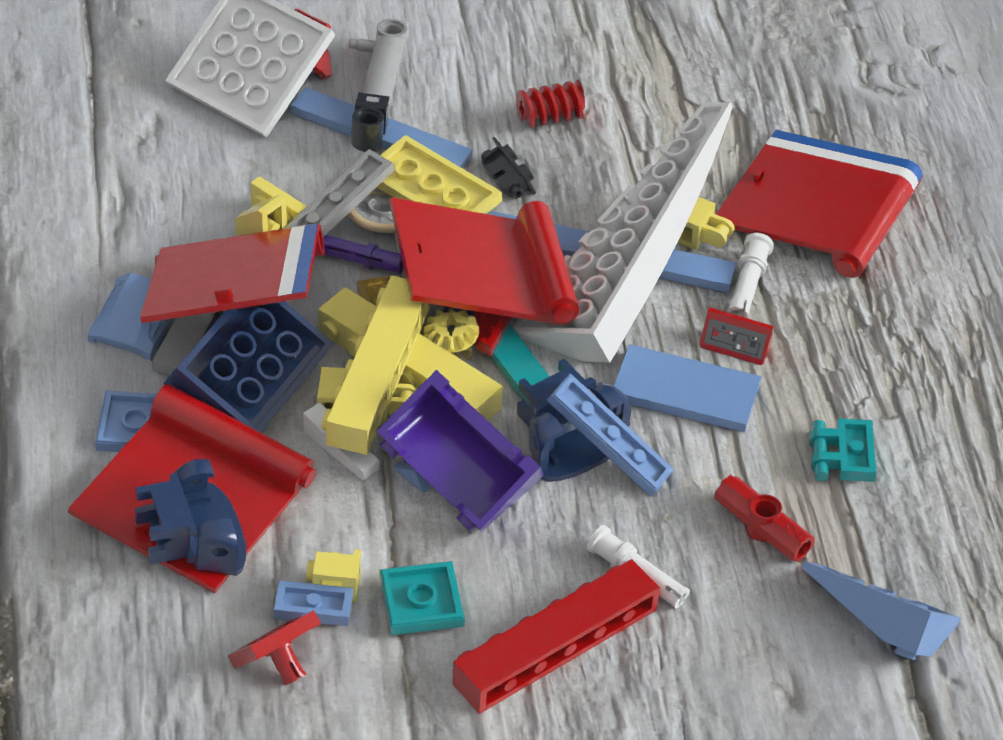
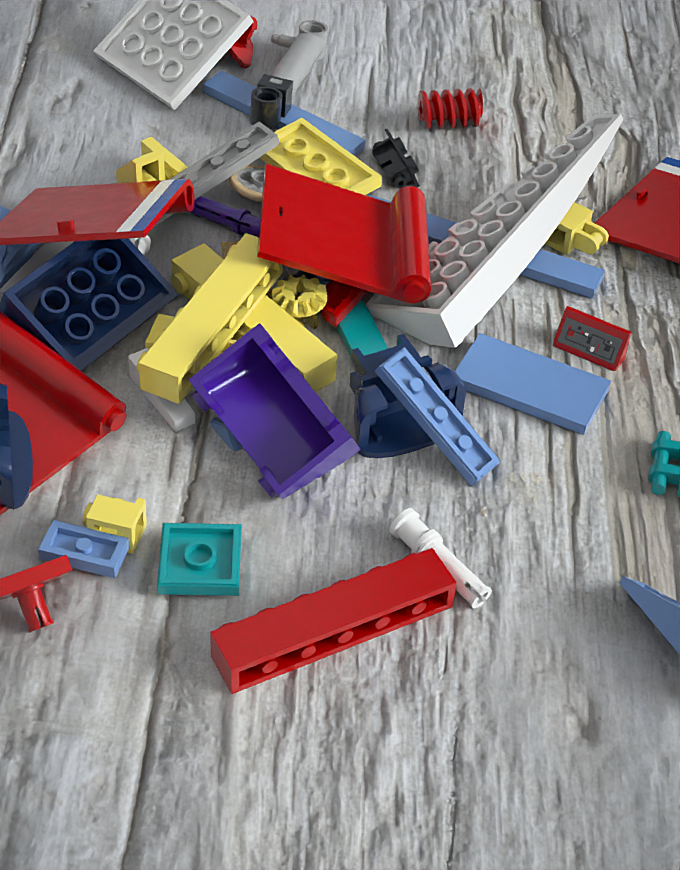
camera: 10 degrees right, 0 degrees up
(751, 266) = (619, 275): white pin -> none
(764, 518) = (588, 525): red piece -> none

